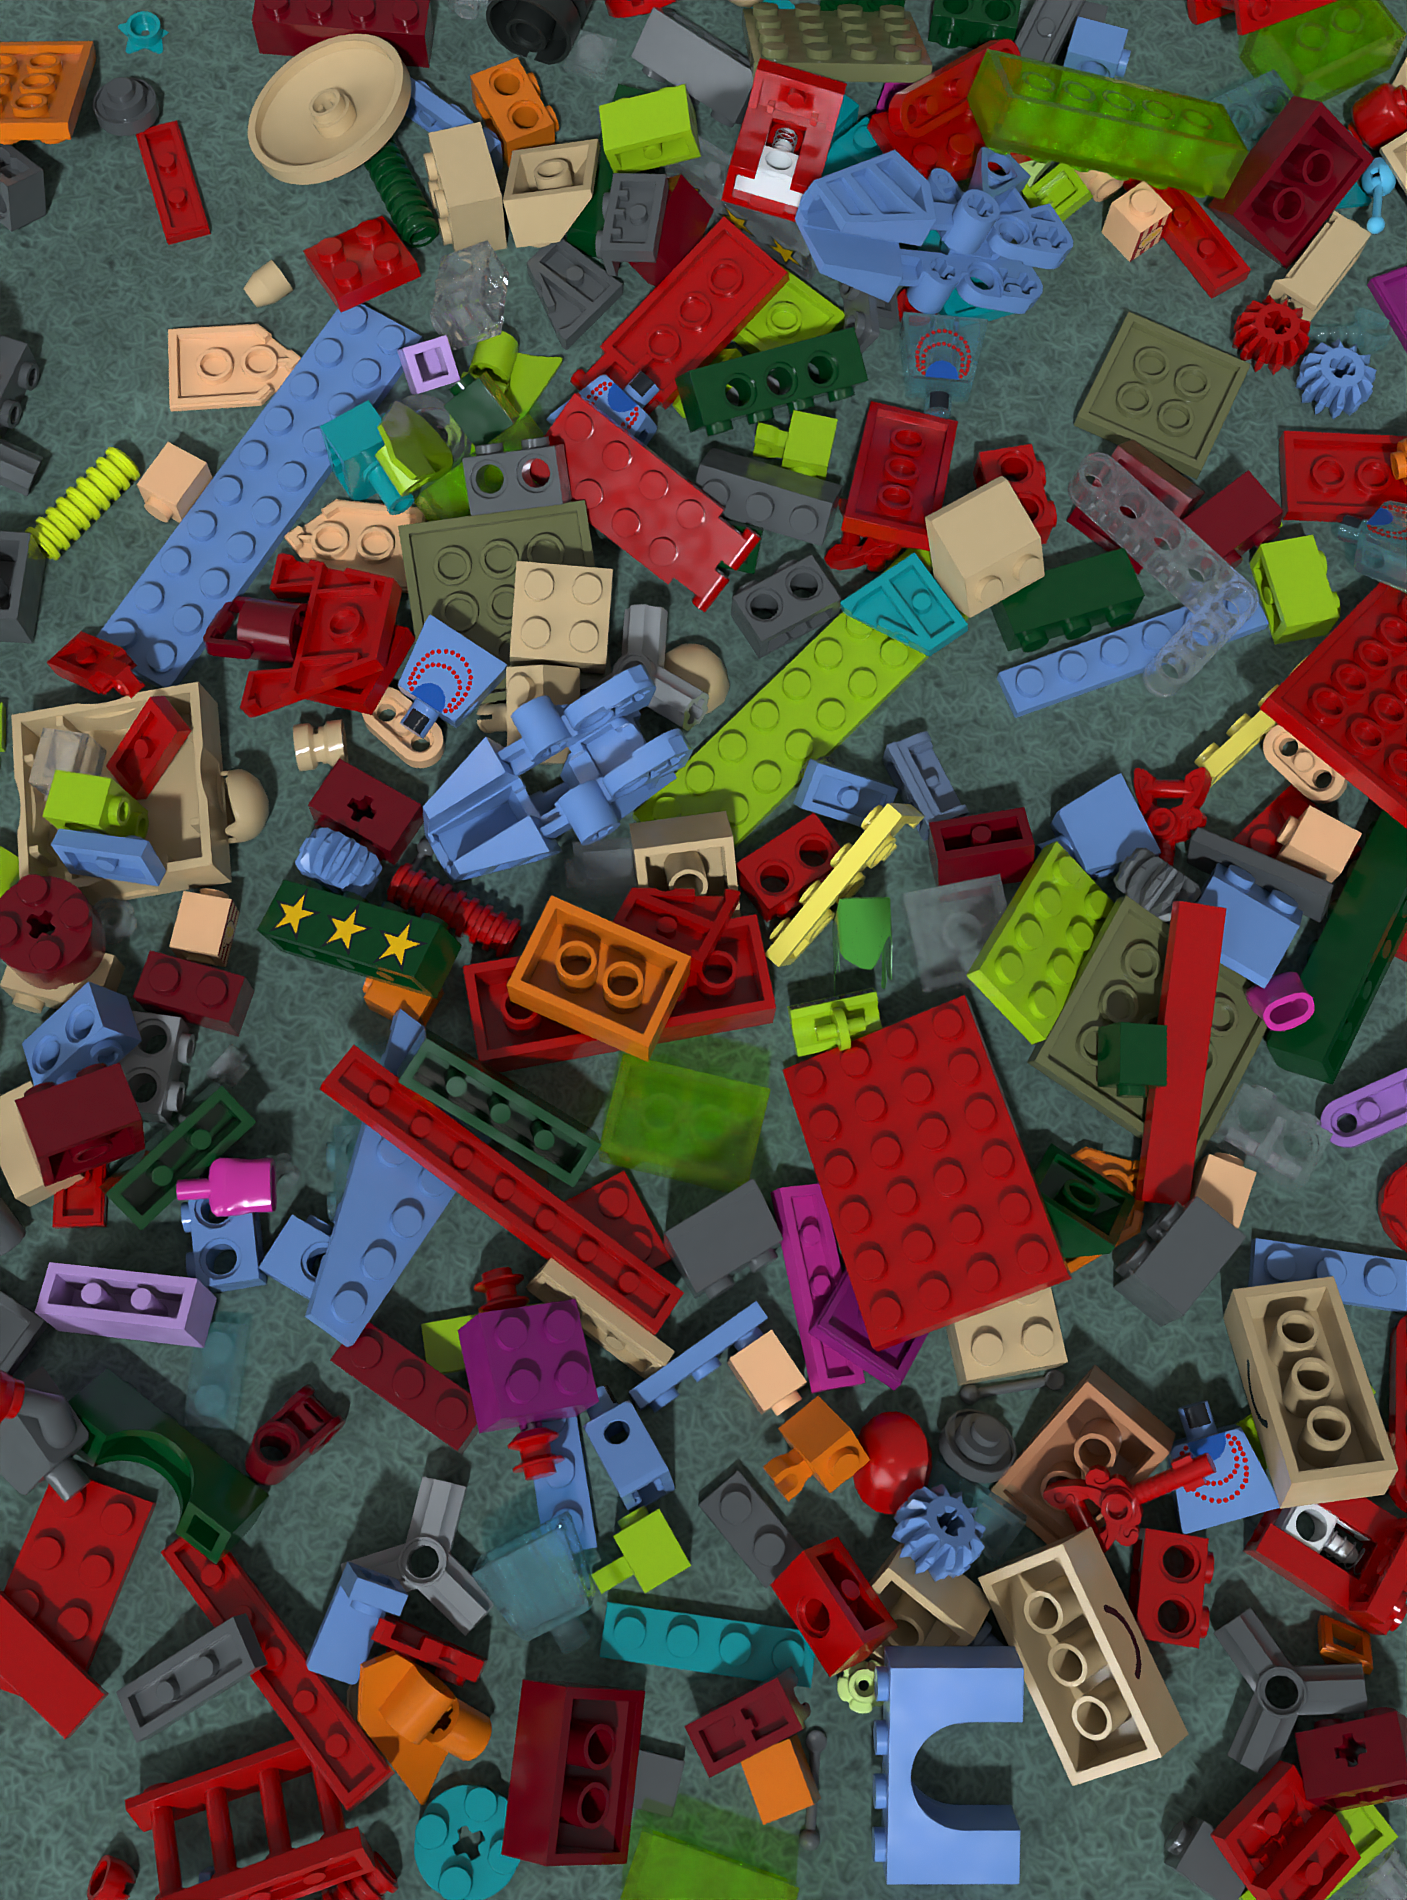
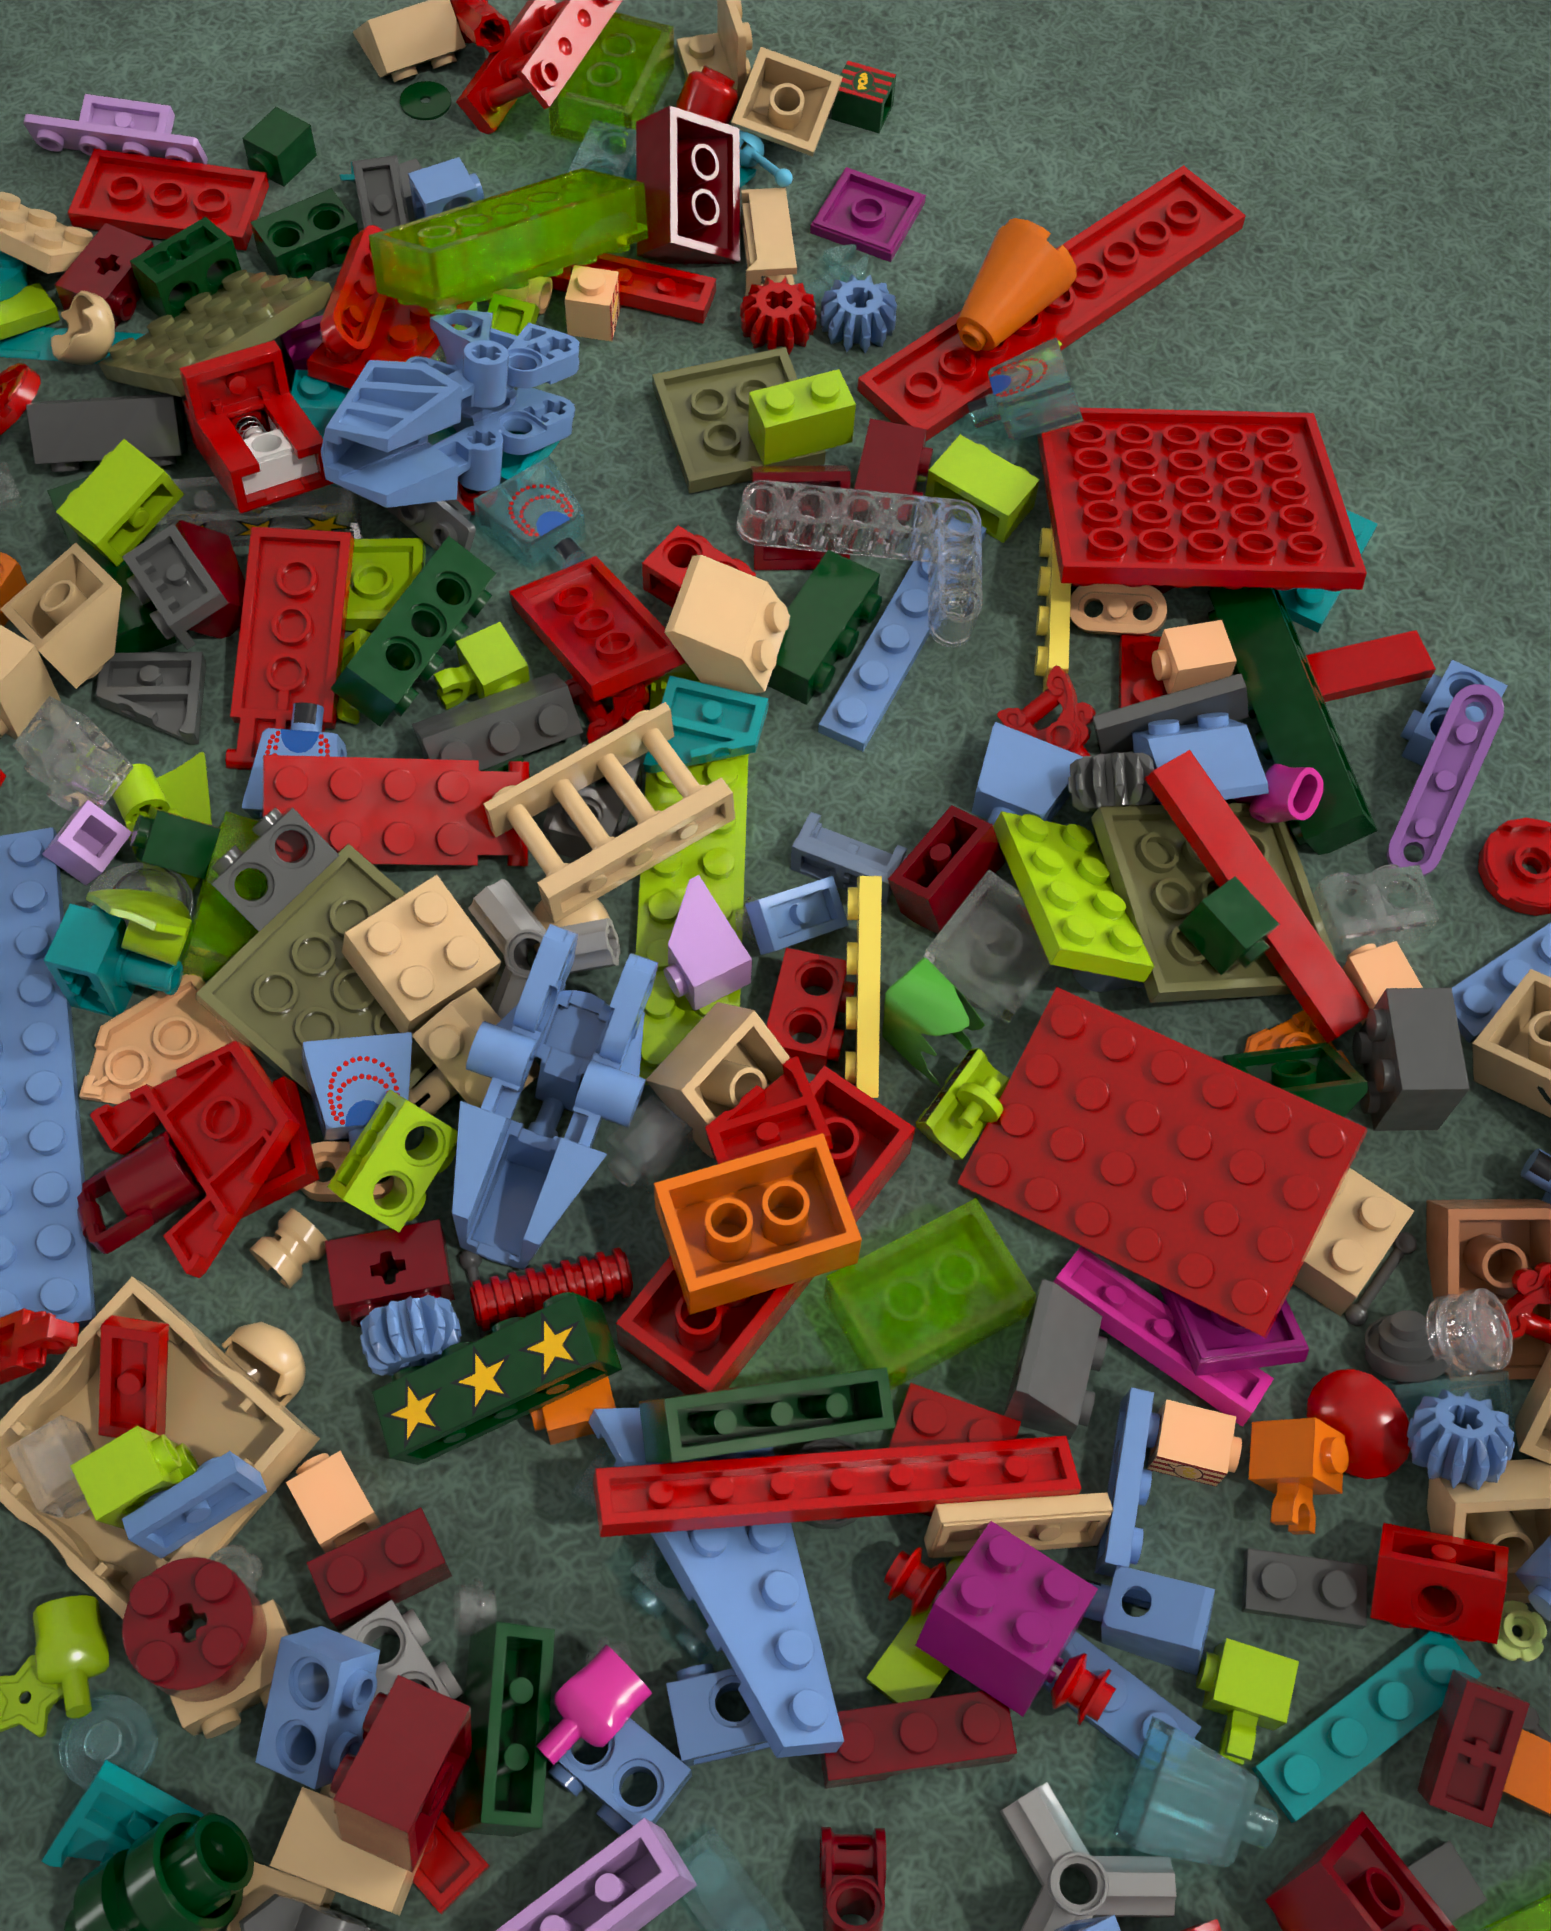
camera: 40 degrees left, 10 degrees down
(415, 732) = (382, 1153): none -> lime brick
(753, 767) = (704, 950): none -> lavender slope
(788, 661) = (612, 858): none -> tan fence
(1017, 1473) = (1469, 1332): none -> clear wheel
(1201, 429) = (801, 417): none -> lime brick

